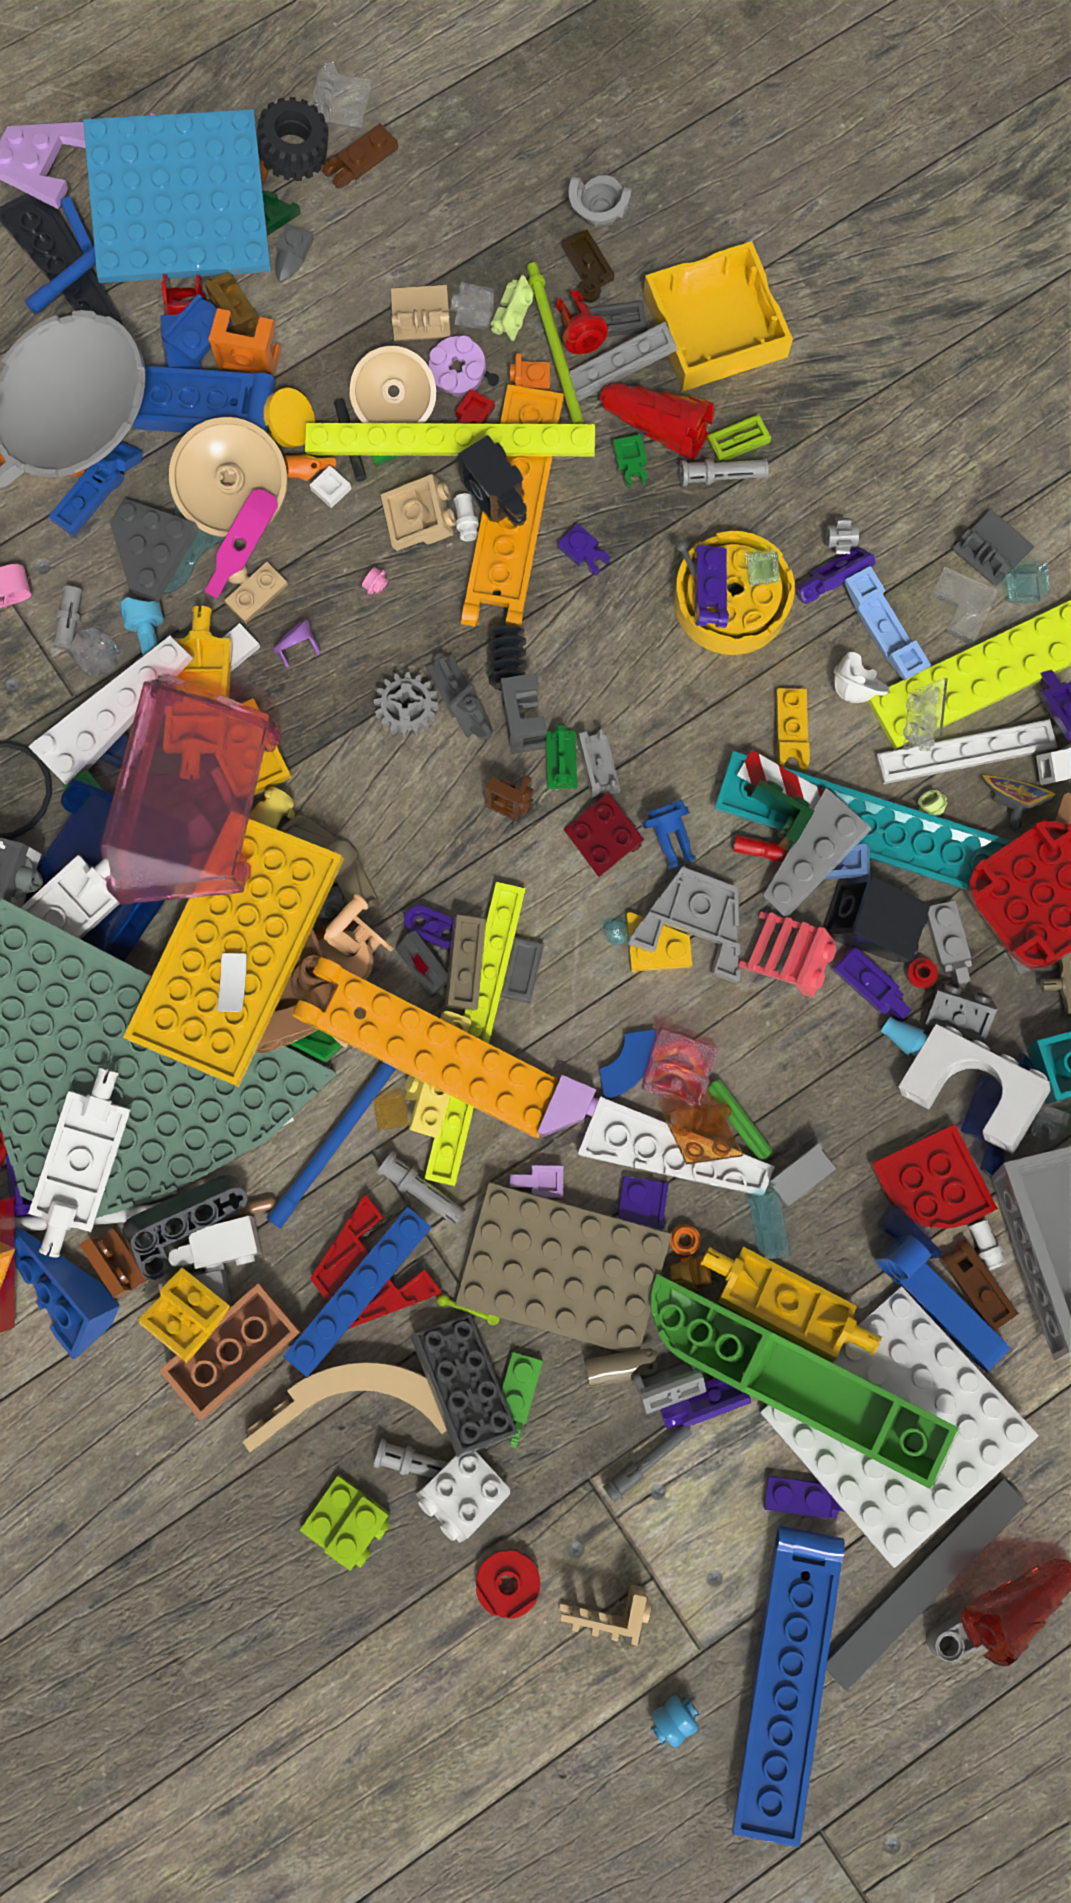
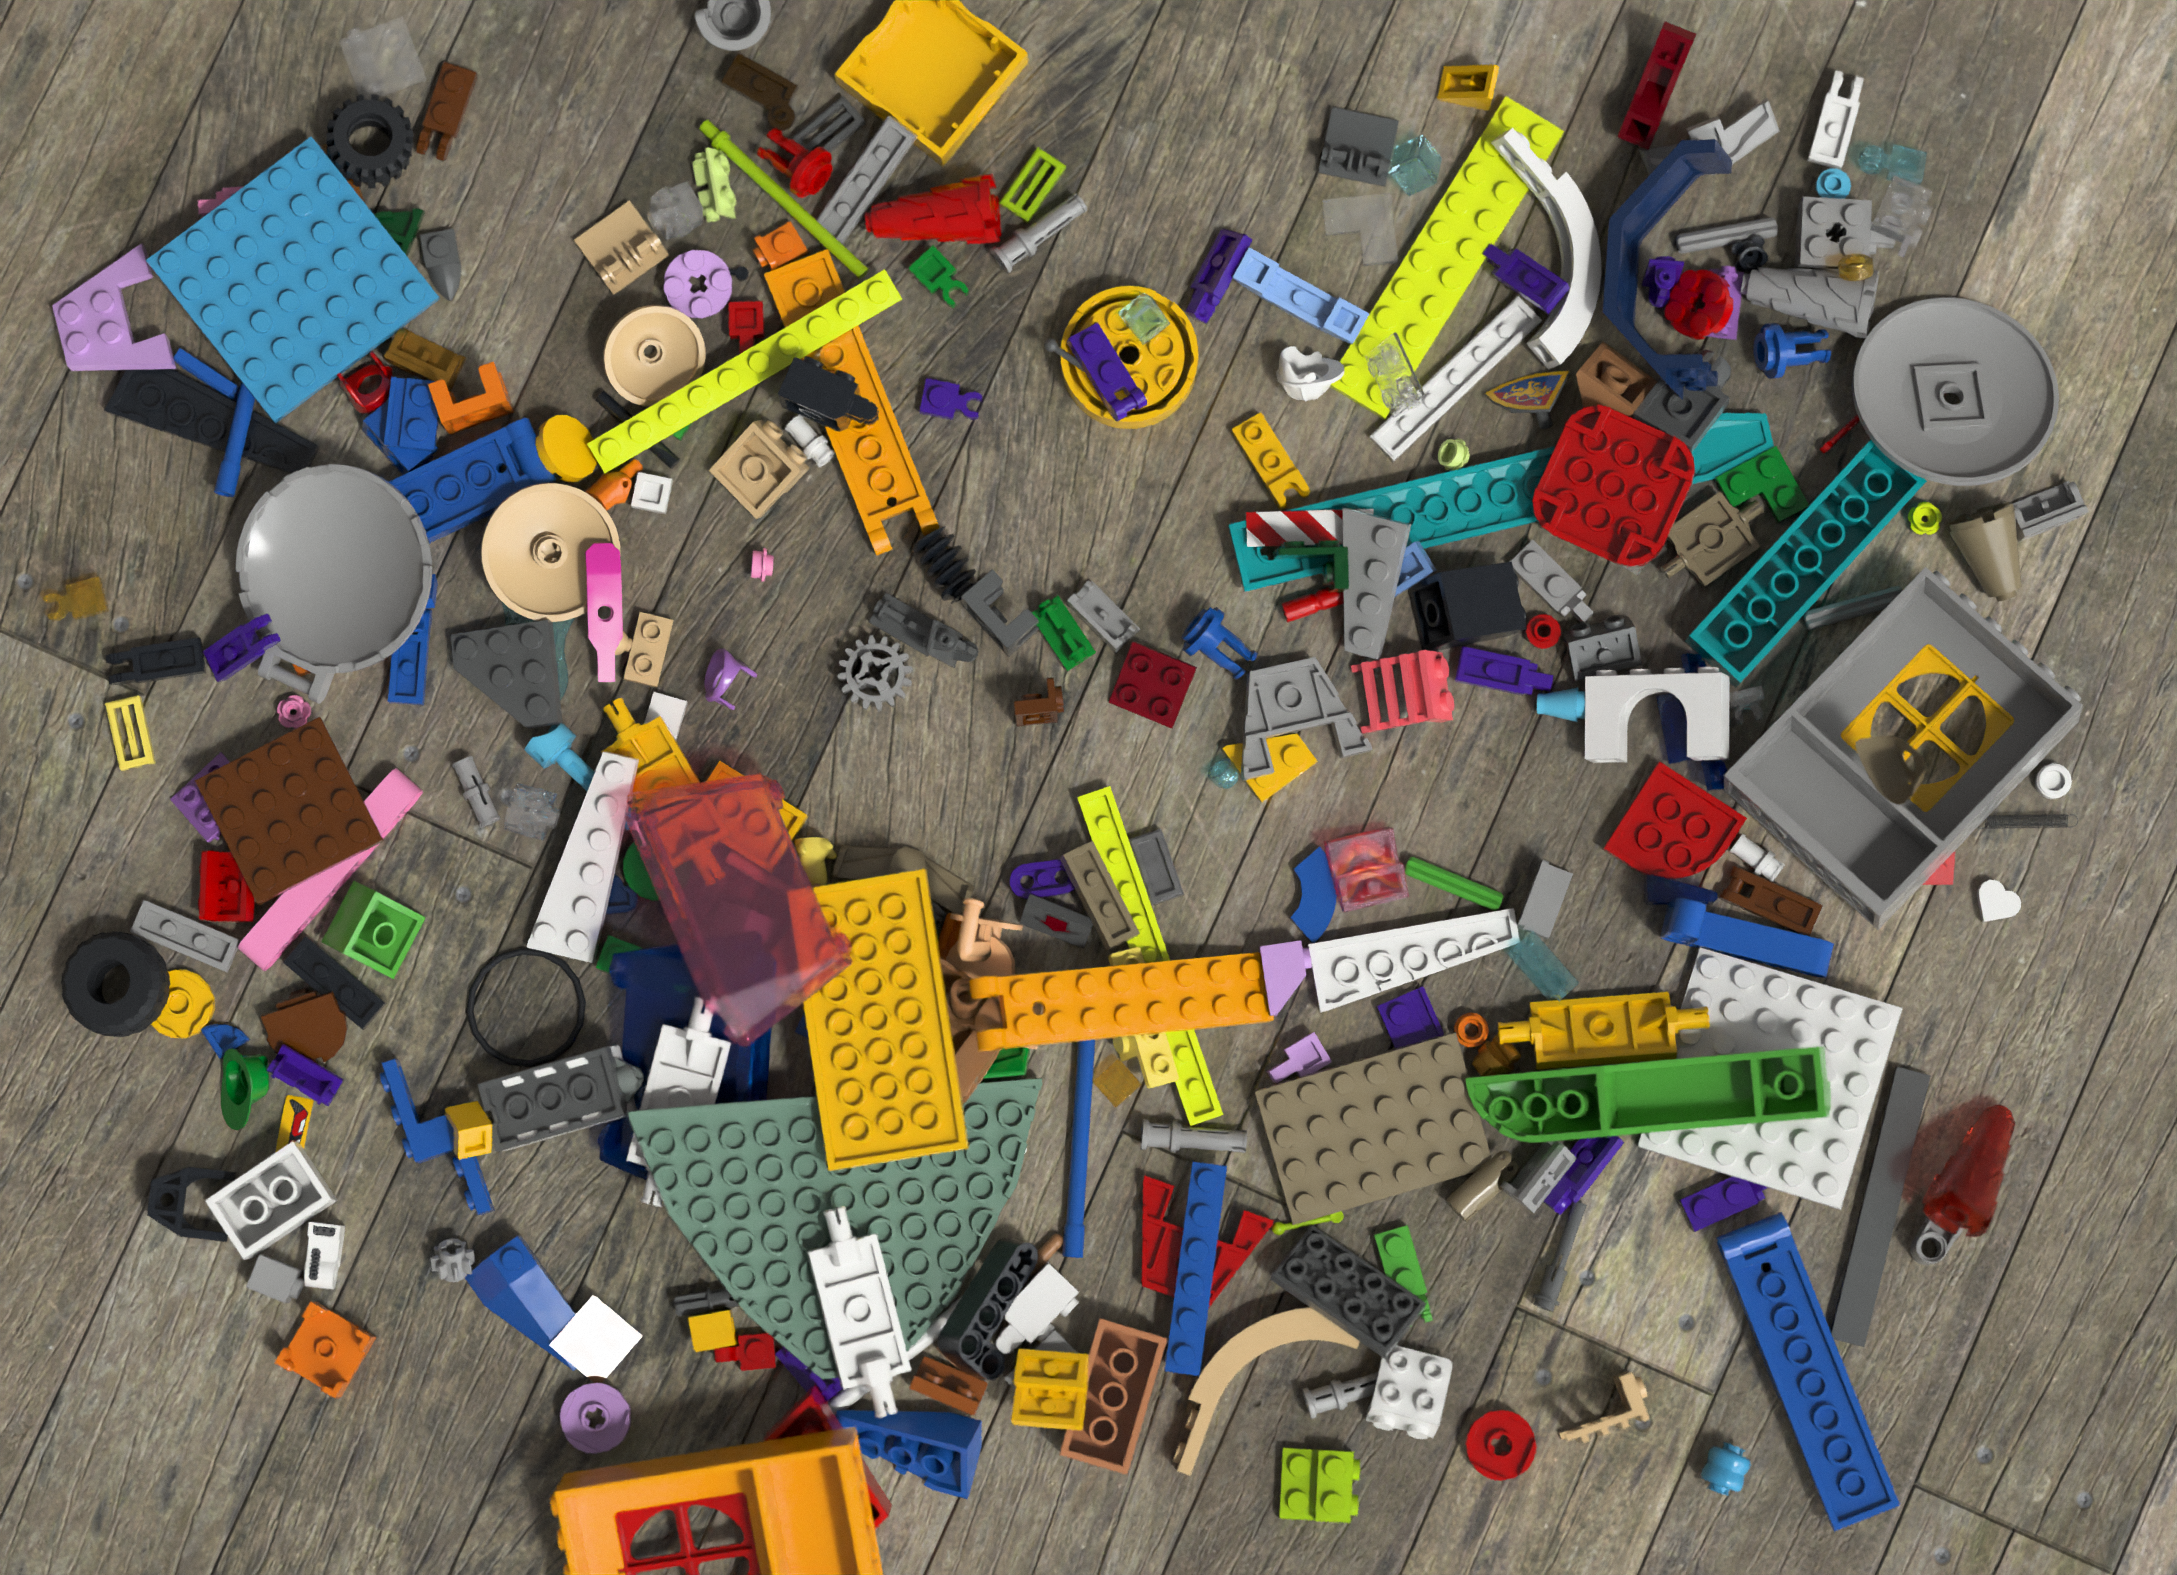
camera: 30 degrees left, 5 degrees up
(232, 982) = (900, 1055): white sticker -> none
(703, 1133) = (1427, 919): clear orange hinge -> none
(842, 536) = (1201, 230): light grey gear -> none

